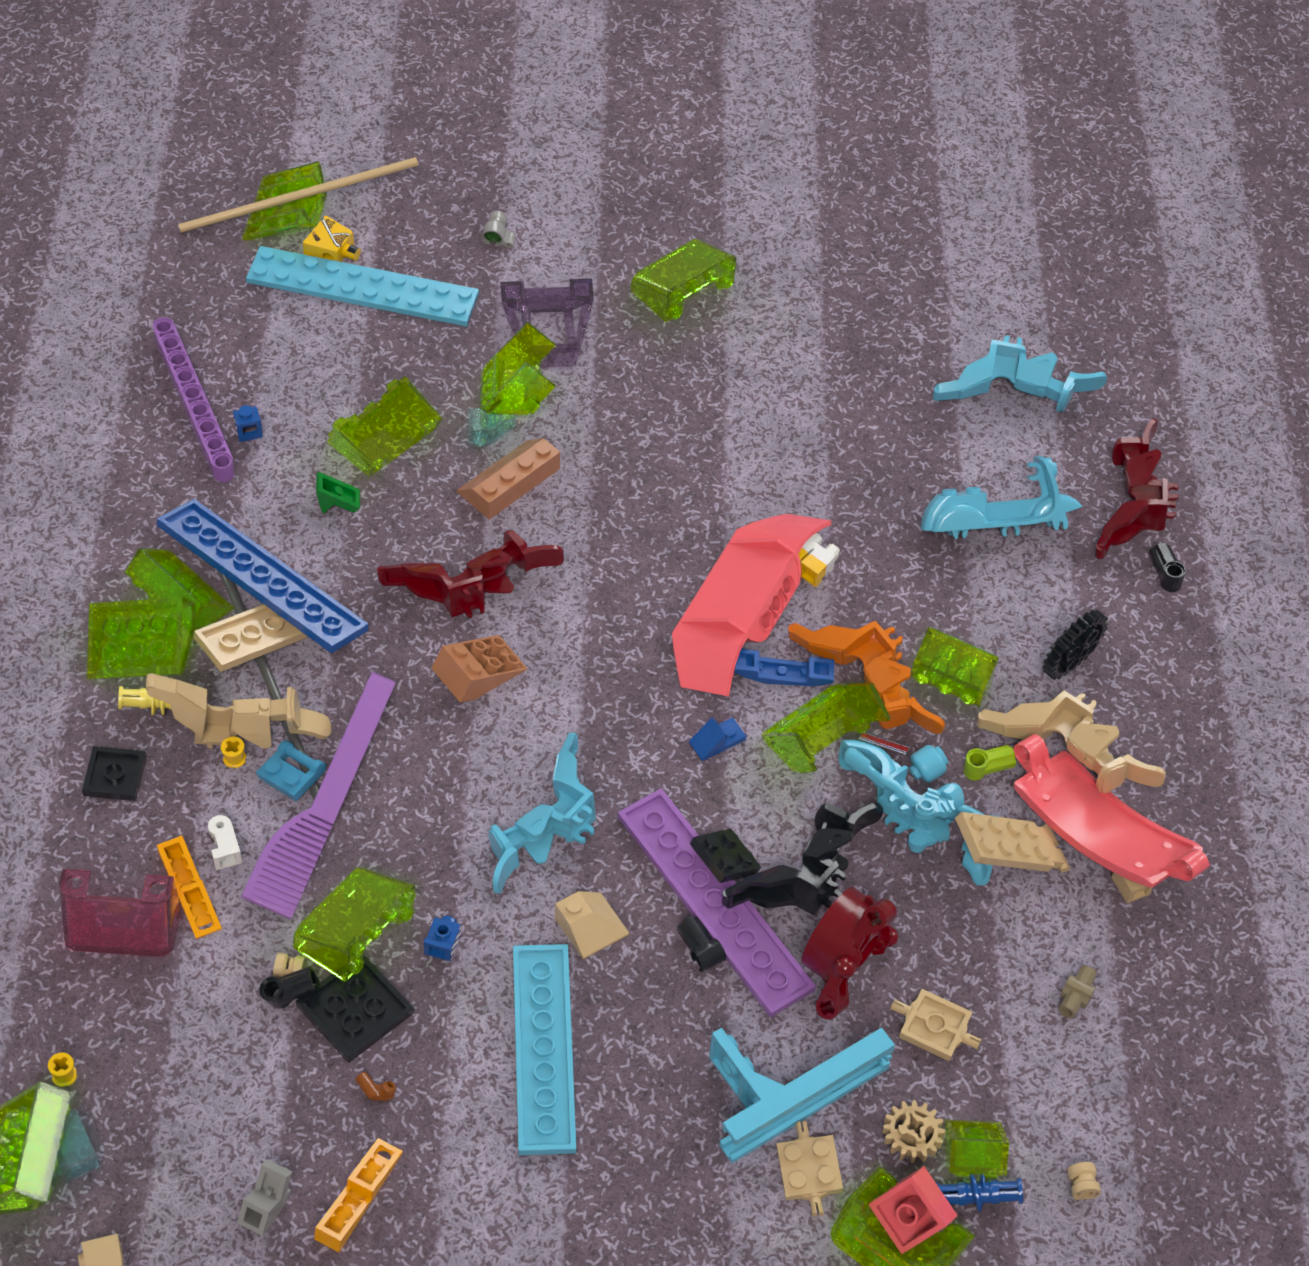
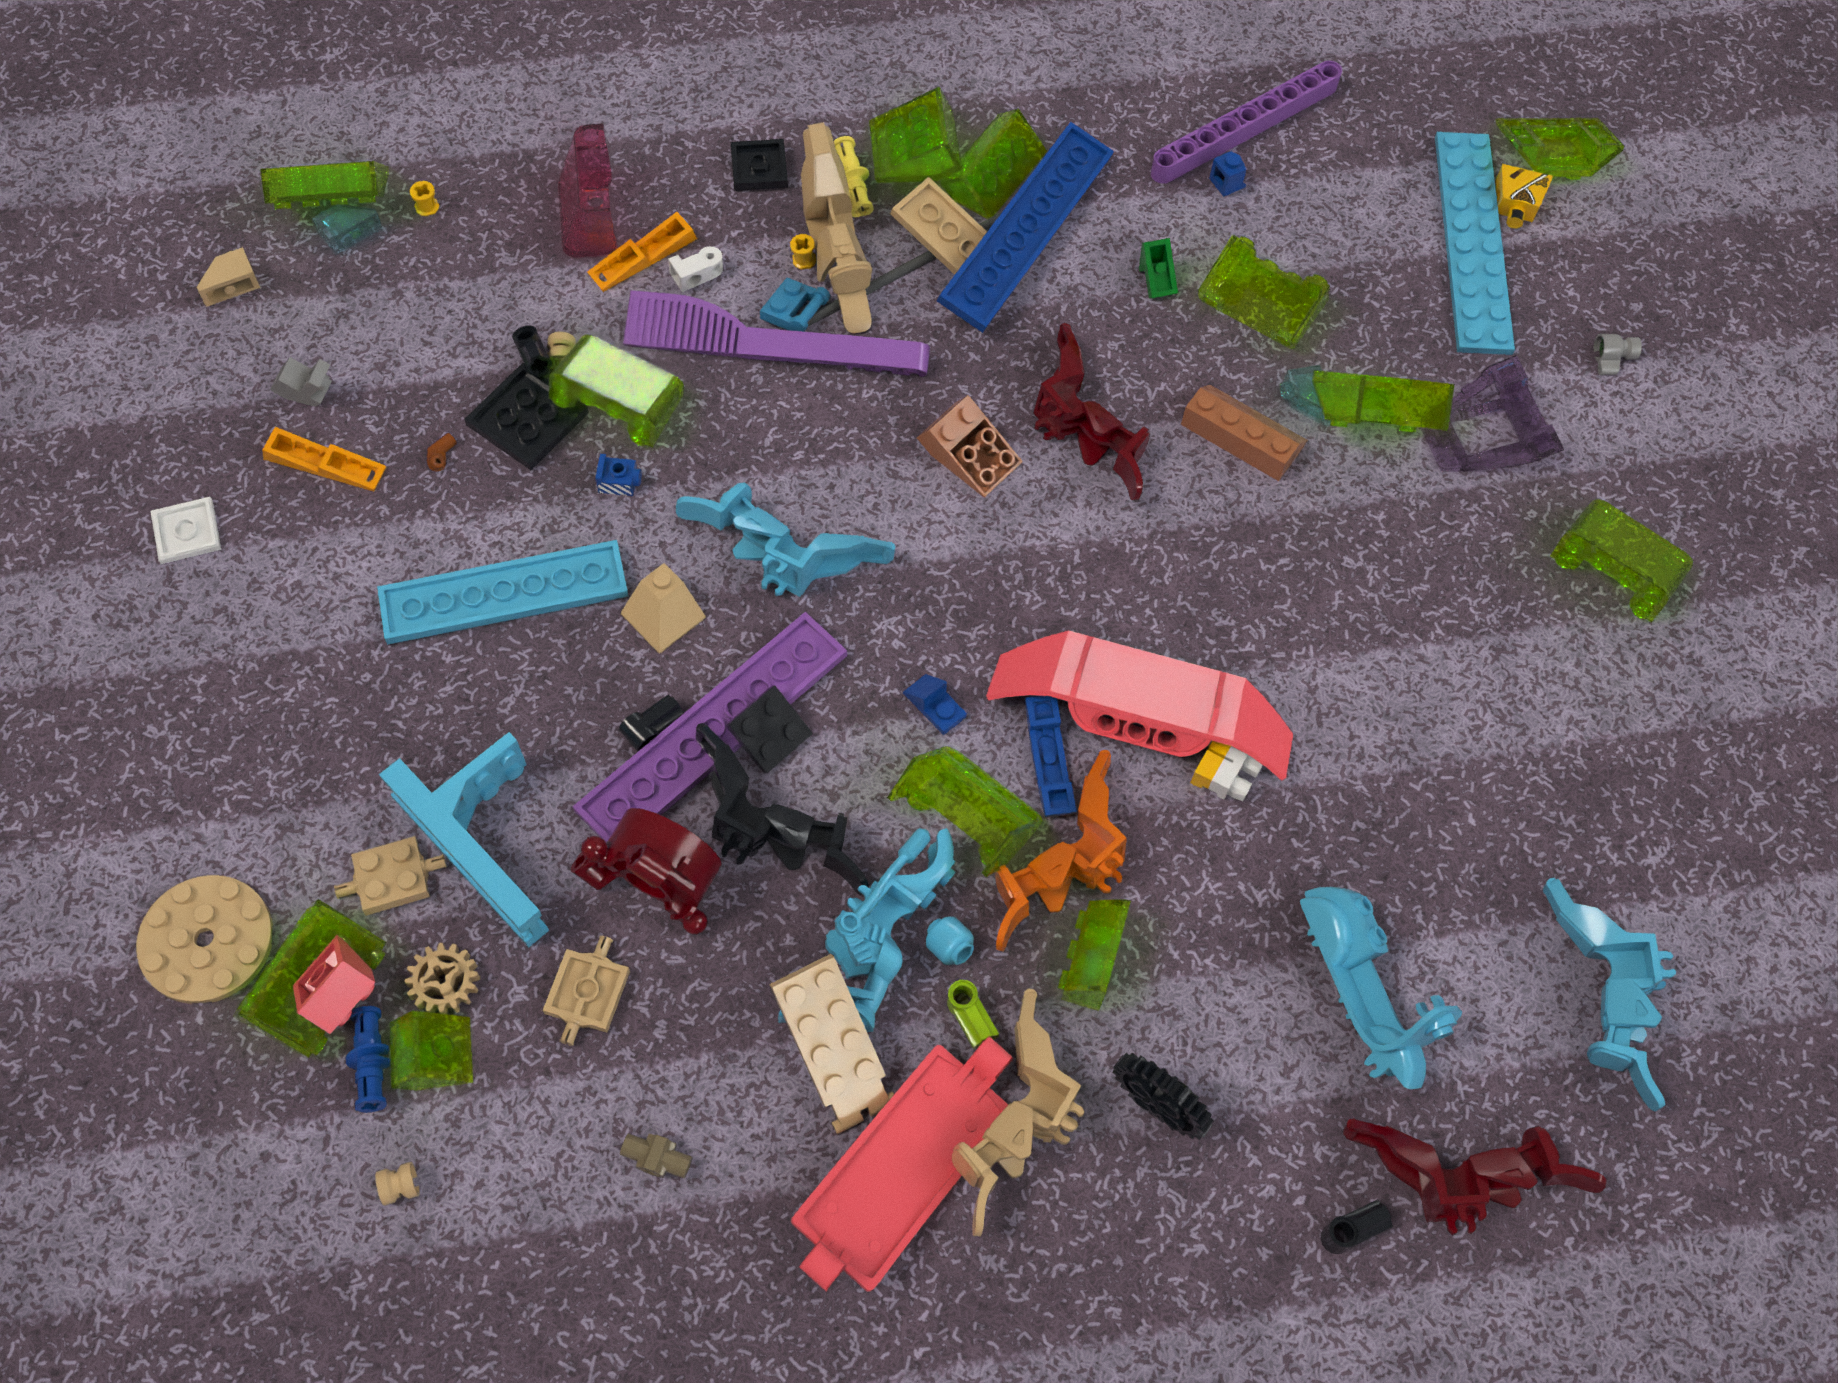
camera: 80 degrees right, 10 degrees up
(296, 195) = (1575, 148): tan piece -> none
(884, 742) = (964, 883): sticker -> none

